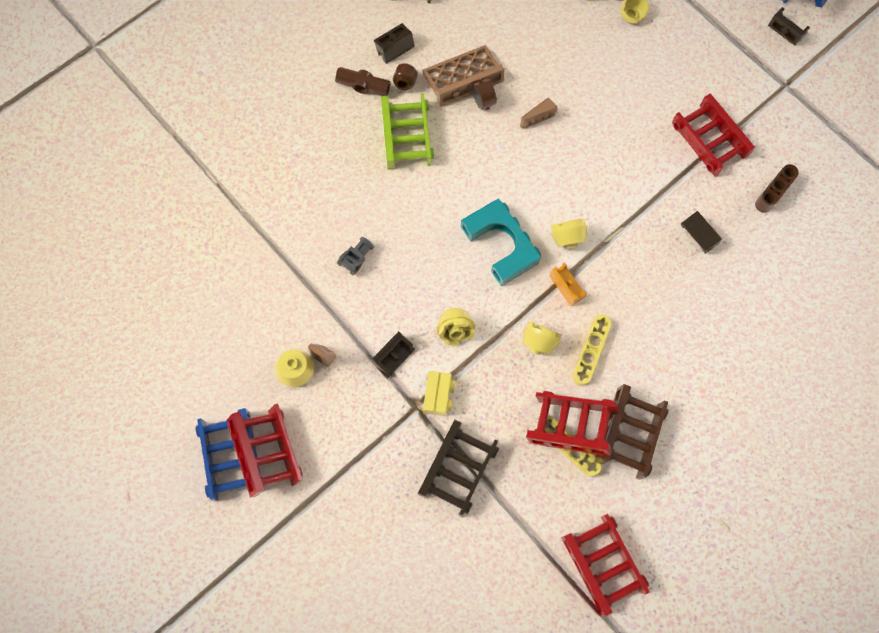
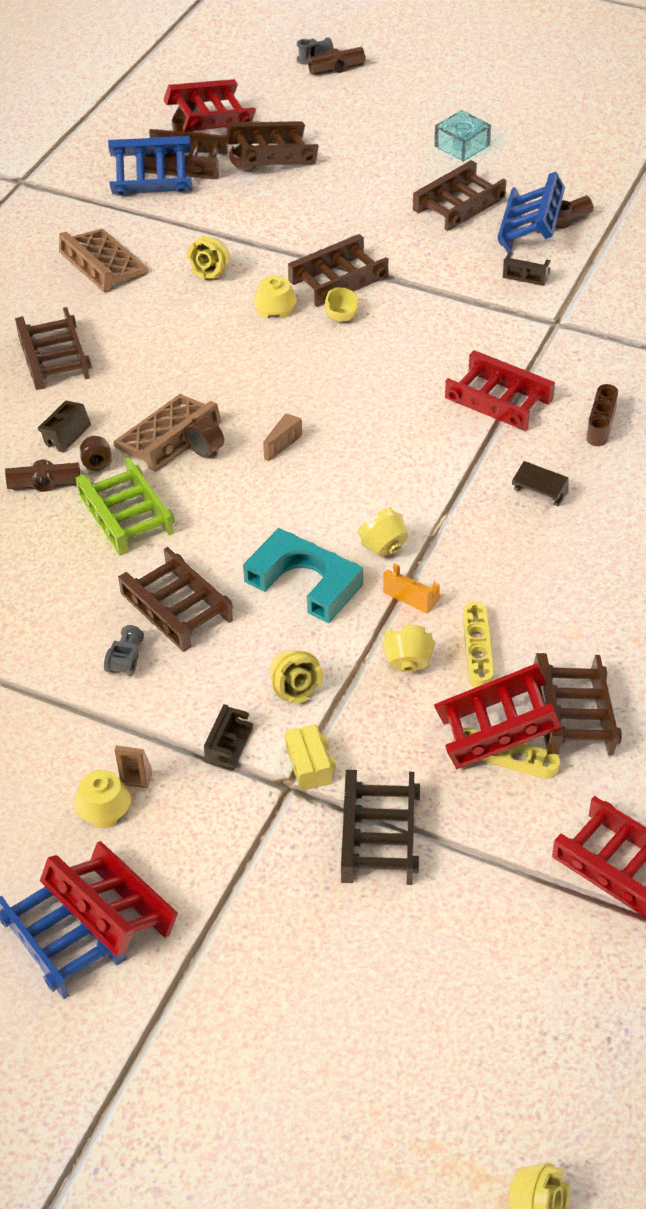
camera: 20 degrees left, 25 degrees down
(394, 237) = (165, 617): none -> reddish brown fence

